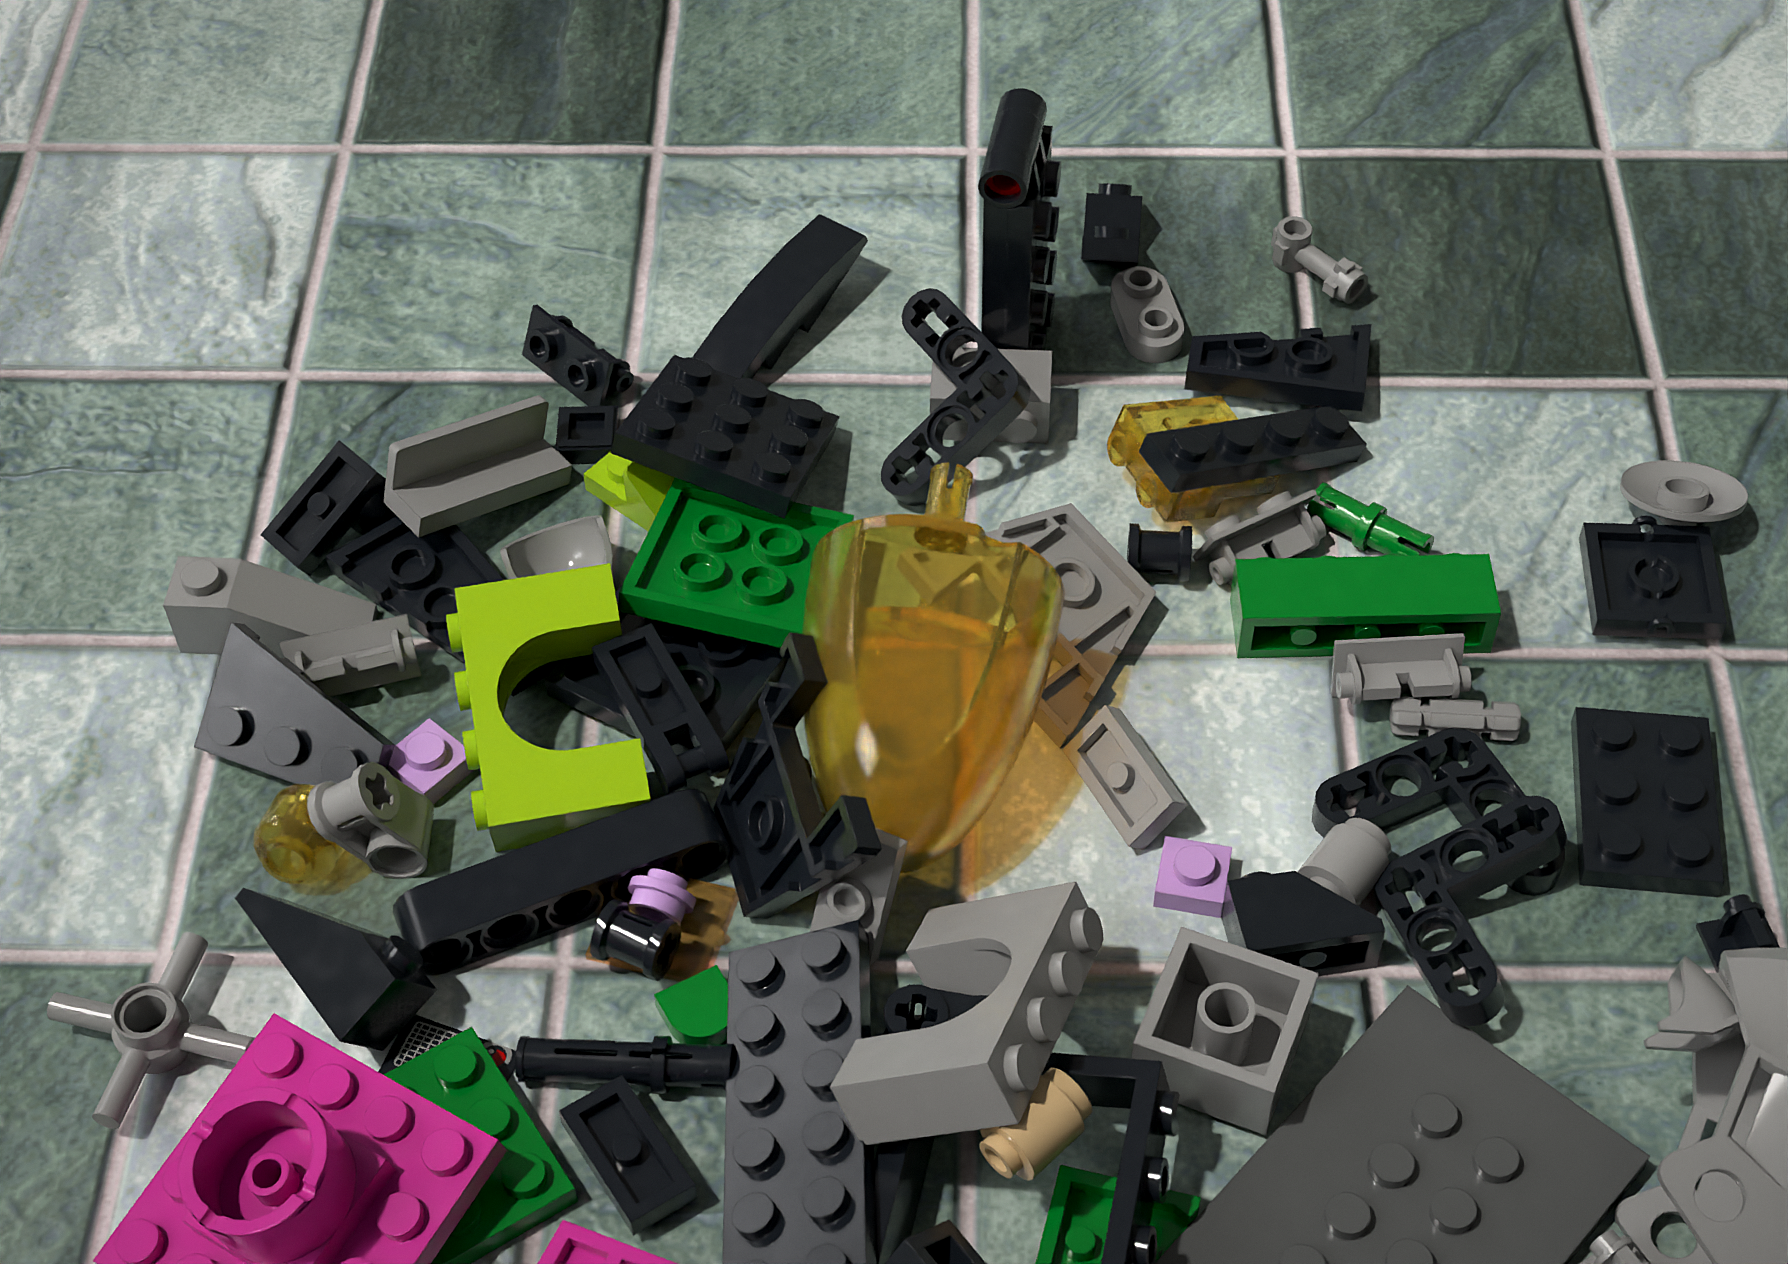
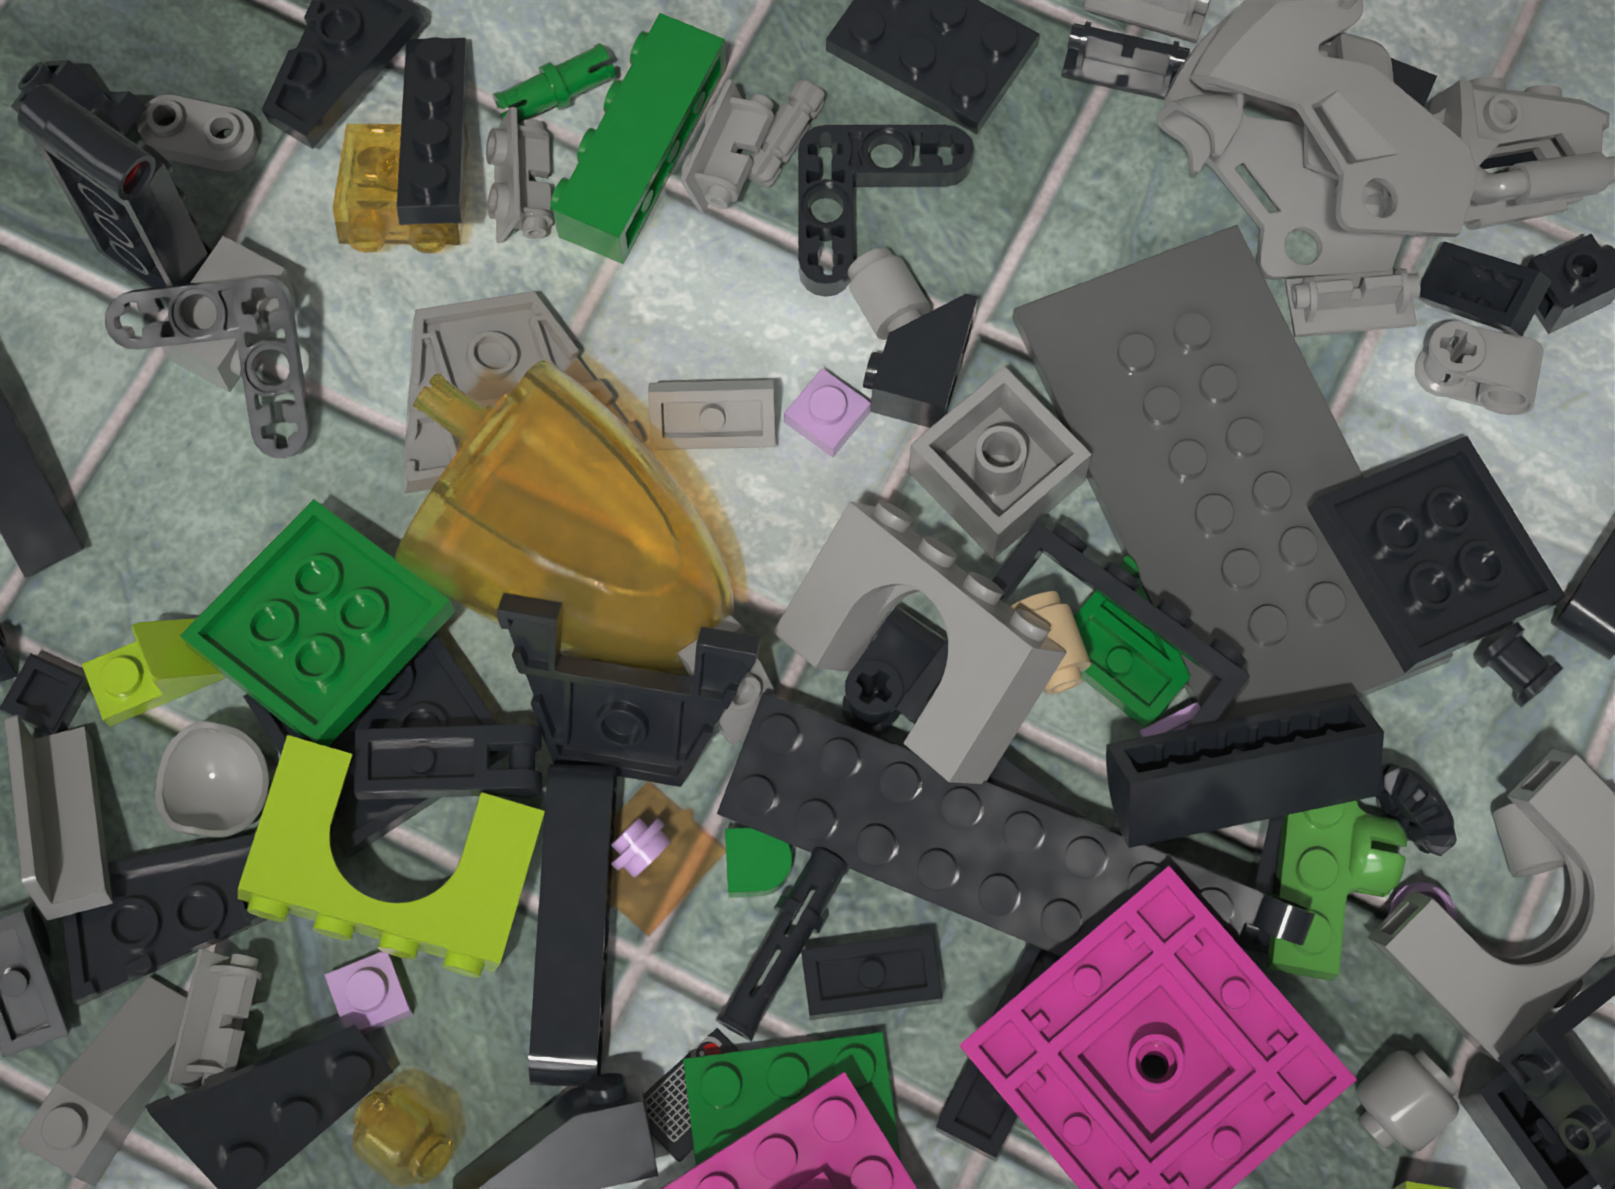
camera: 65 degrees left, 20 degrees up
(375, 820) = (435, 1063): light grey piece -> none
(635, 939) = (672, 884): black bush -> none
(726, 435) = (156, 567): black plate -> none
(1160, 551) = (490, 264): black bush -> none
(1445, 889) = (948, 229): black beam -> none

